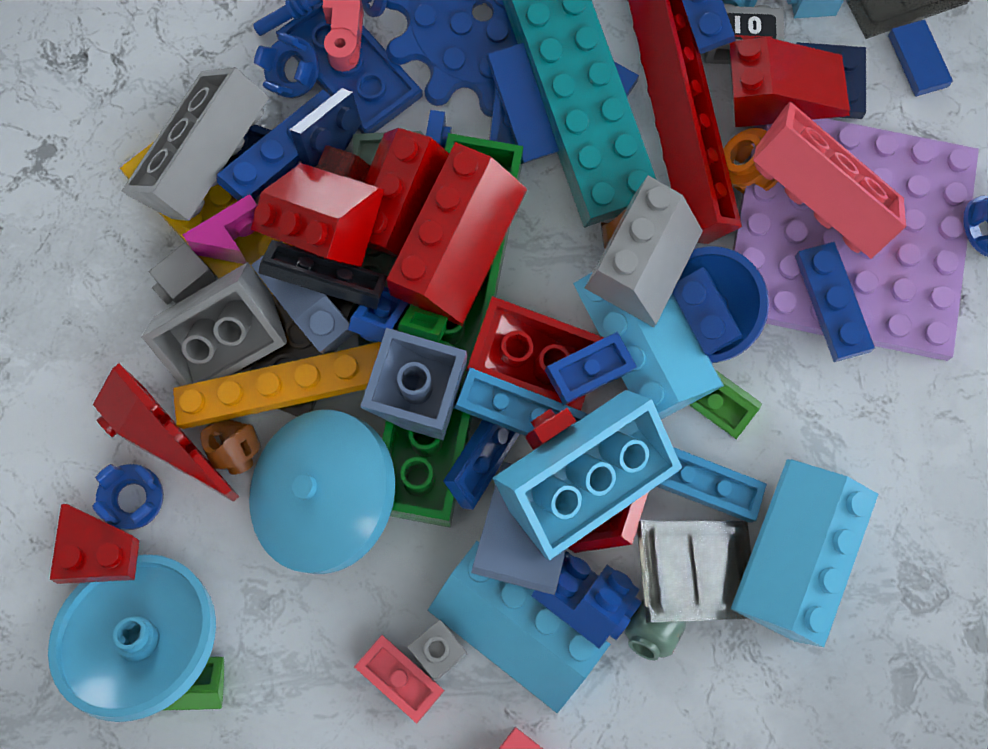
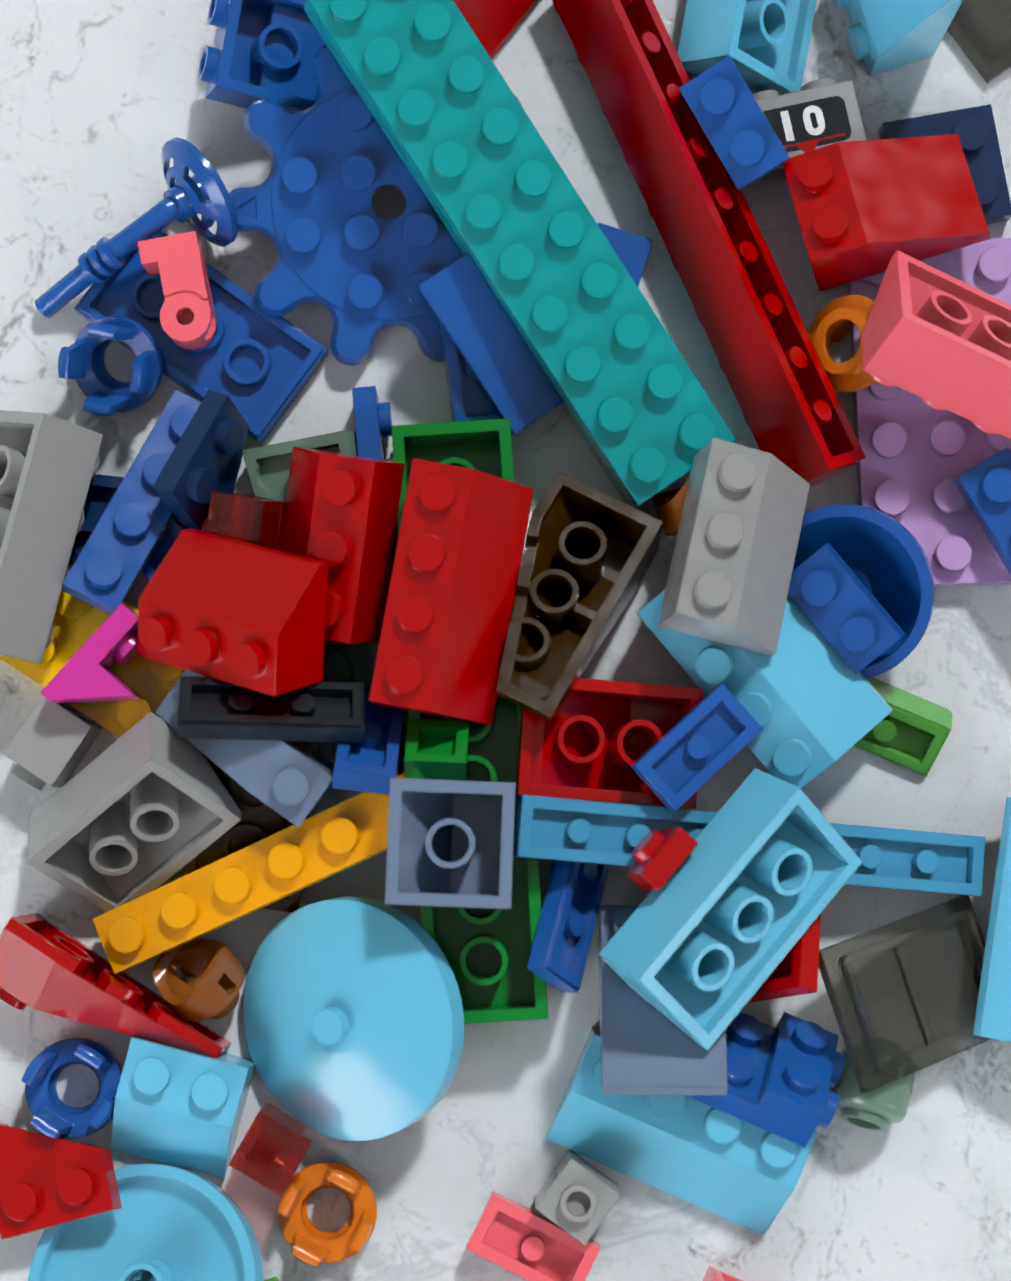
camera: 10 degrees left, 10 degrees up
(193, 523) = (180, 1106): none -> medium azure slope
(243, 563) = (272, 1149): none -> clear red brick
(246, 617) = (319, 1246): none -> orange piece
(536, 256) = (572, 586): none -> dark brown wedge

